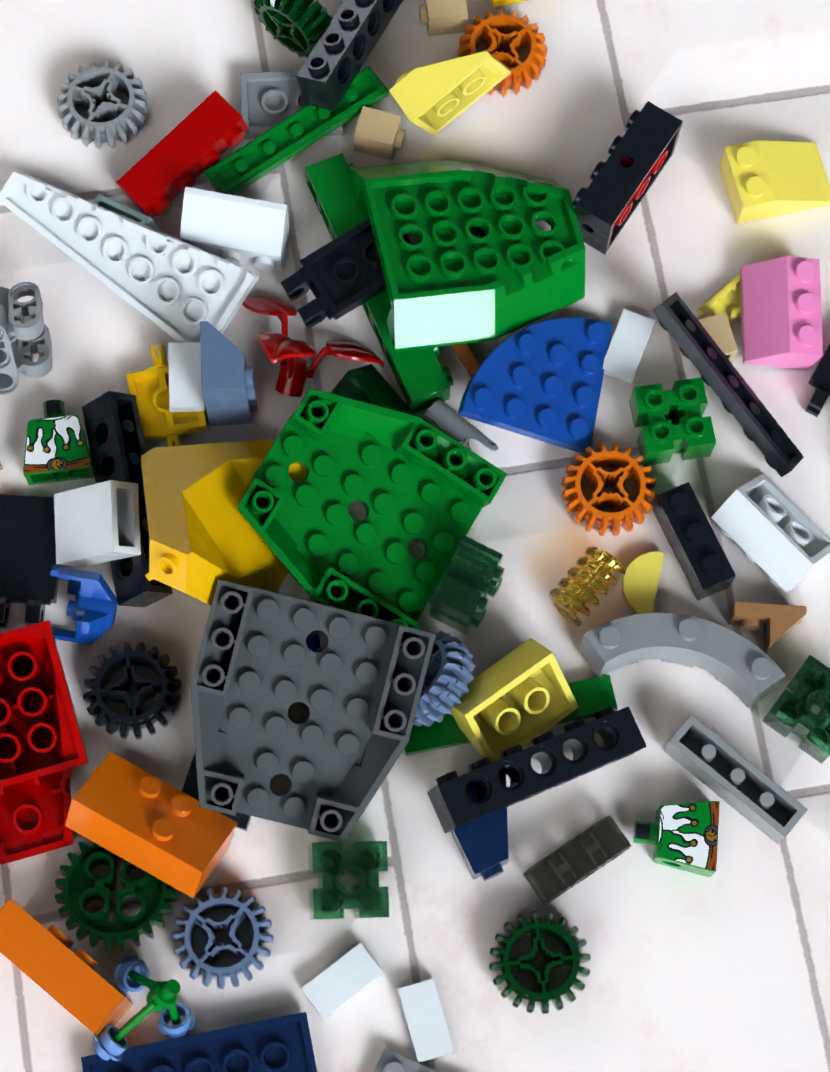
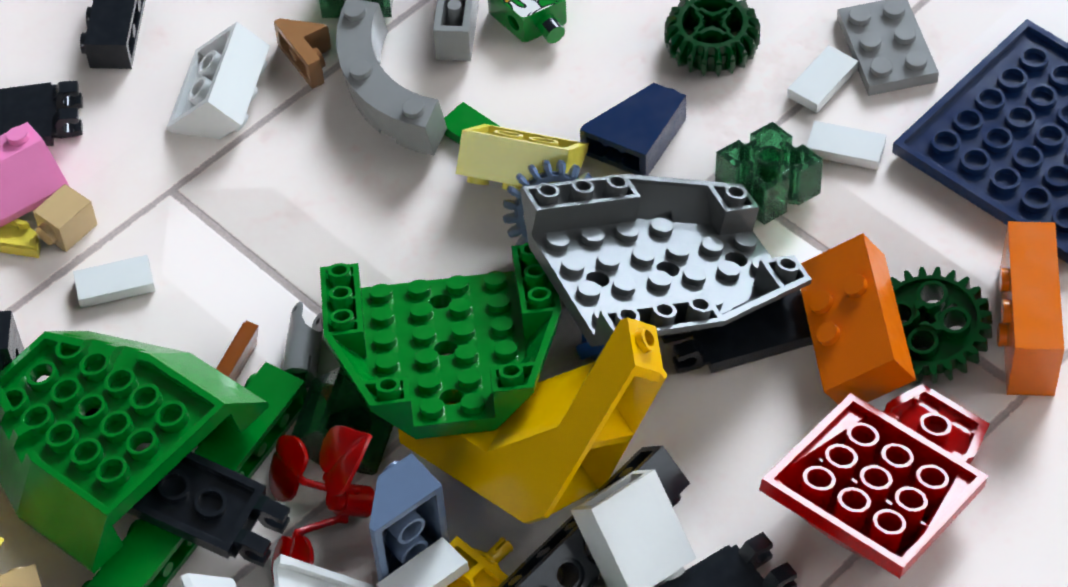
camera: 120 degrees left, 20 degrees down
(93, 606) = (711, 498): blue piece -> none
(117, 693) = (752, 412): black gear -> none
(174, 1016) = (982, 223): medium blue plant -> none
(234, 921) = (911, 221): sand blue gear -> none
(457, 809) = (568, 98): black brick -> none
(464, 587) = (448, 238): clear green brick -> none
(543, 382) = (201, 305): blue plate -> none
(577, 860) = (611, 56): clear smoke beam -> none
(584, 583) = (374, 174): clear yellow piece -> none
(626, 510) = (270, 210): orange gear -> none
(642, 581) = (336, 149): light yellow tile -> none
(661, 438) = (169, 200): green brick -> none
(693, 541) = (272, 128): black brick -> none
(728, 384) = (102, 173): black plate -> none

